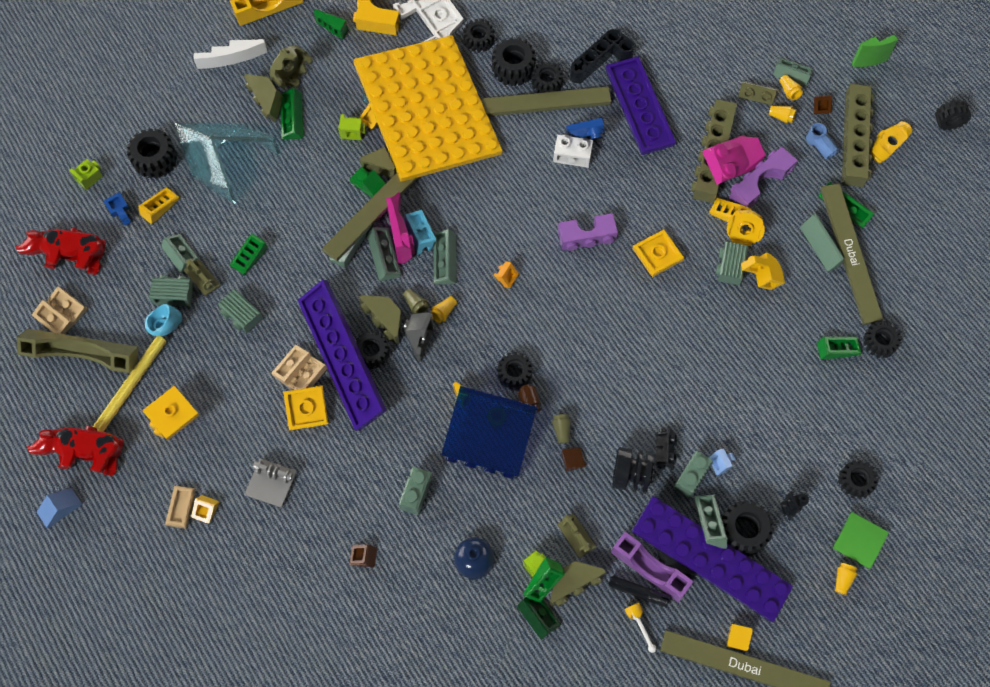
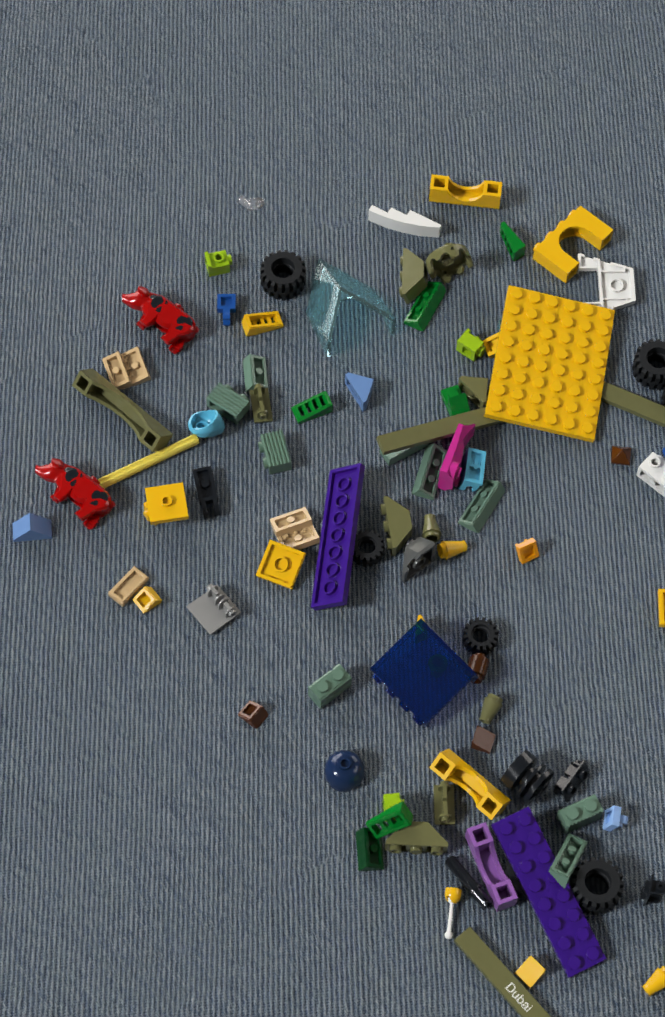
camera: 30 degrees right, 5 degrees down
(87, 107) = (251, 204): none -> clear arm
(198, 379) = (206, 489): none -> black hinge
(280, 215) = (360, 388): none -> medium blue slope
(478, 27) = (640, 332): black tyre -> none
(531, 152) = (620, 455): none -> reddish brown slope
(573, 237) = (609, 552): medium lavender arch -> none
(610, 507) = (456, 770): none -> yellow arch

